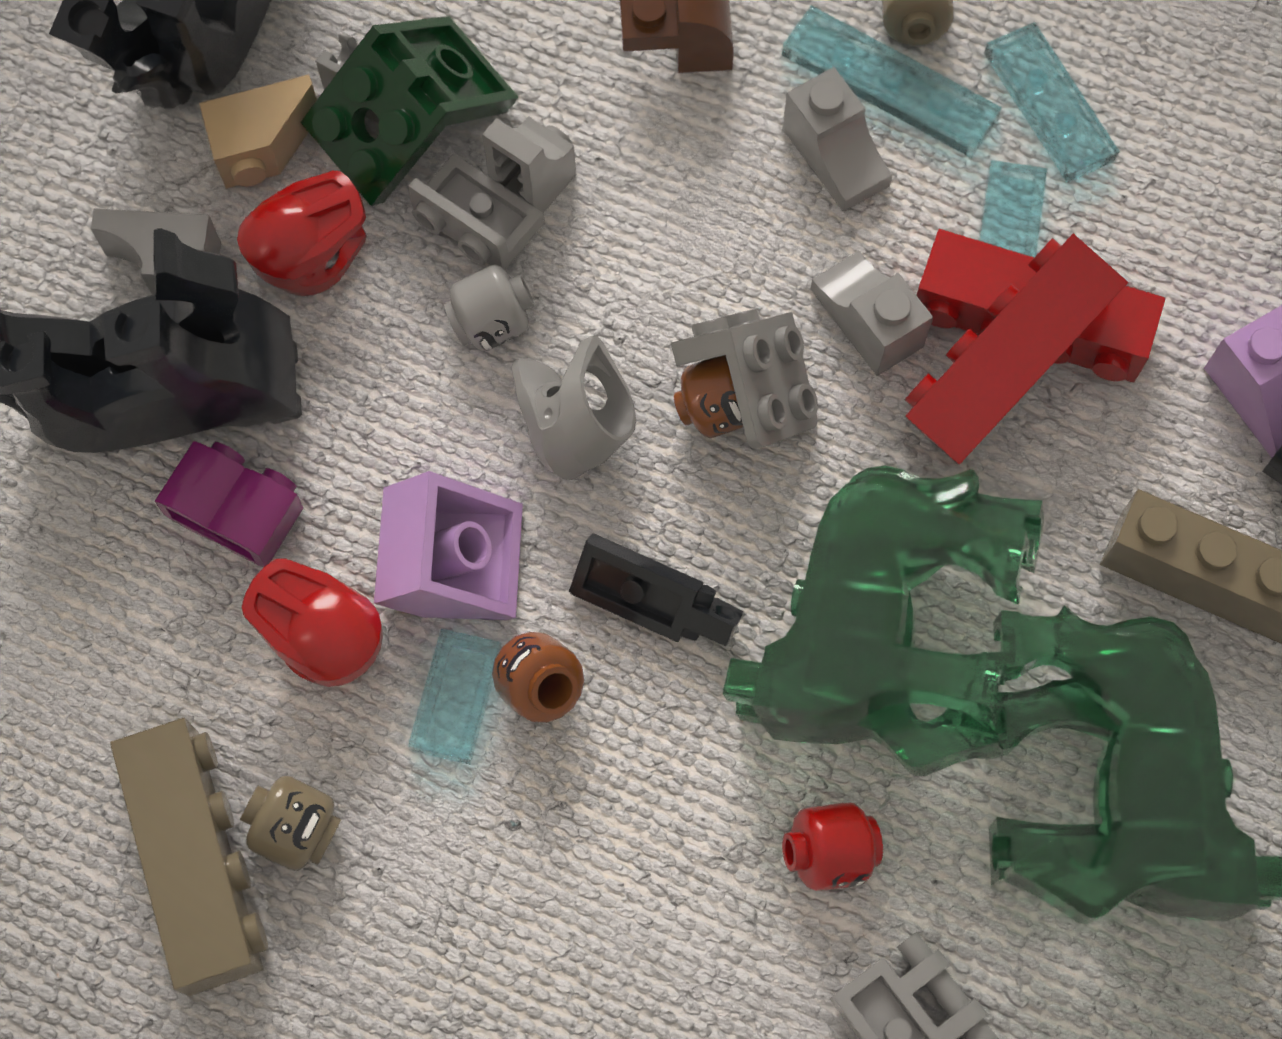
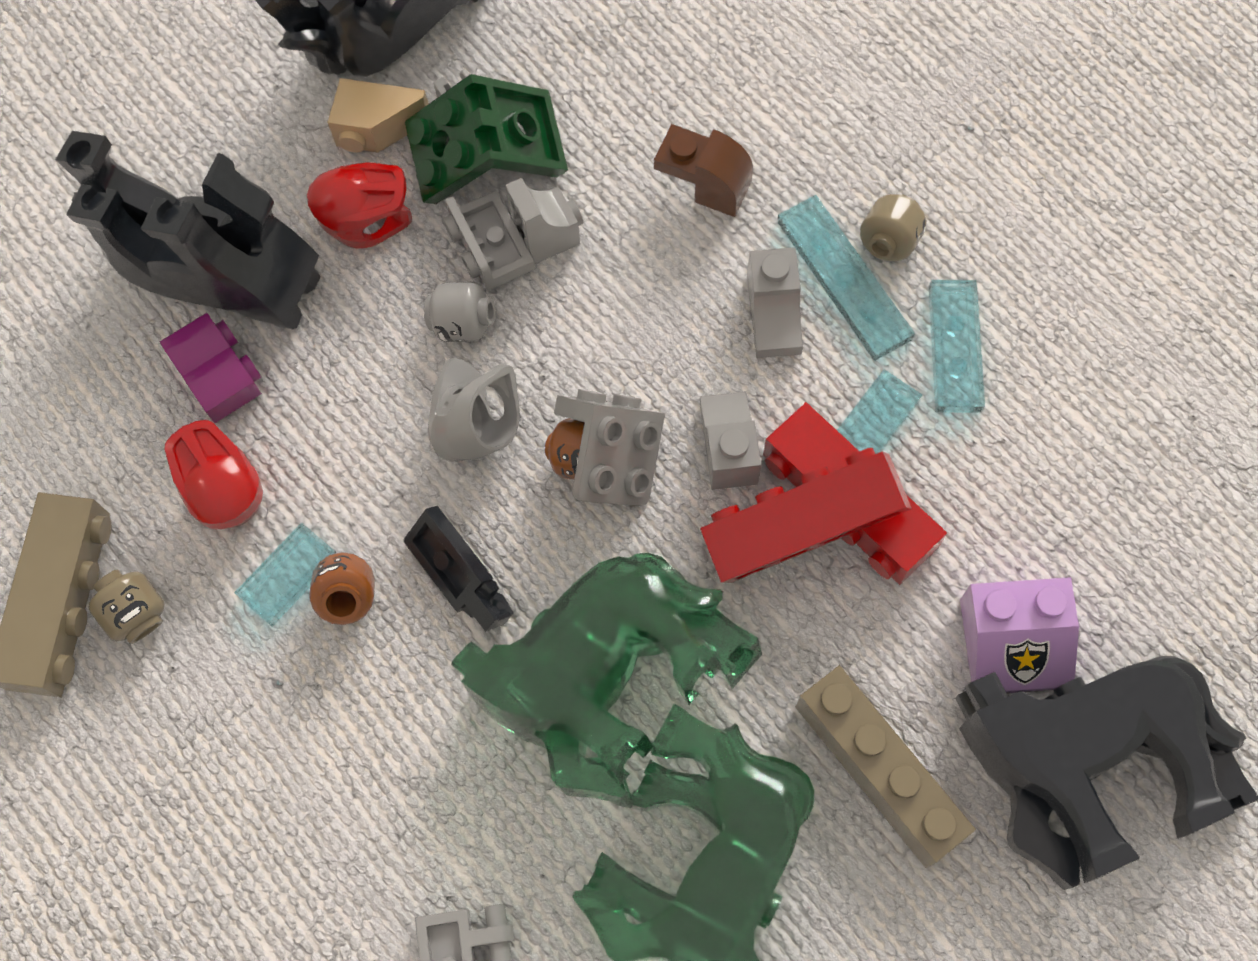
camera: 30 degrees right, 0 degrees up
(130, 235) = (268, 167): light grey arch -> none
(448, 550) = (336, 470): lavender slope -> none
(833, 846) = (477, 812): red head -> none

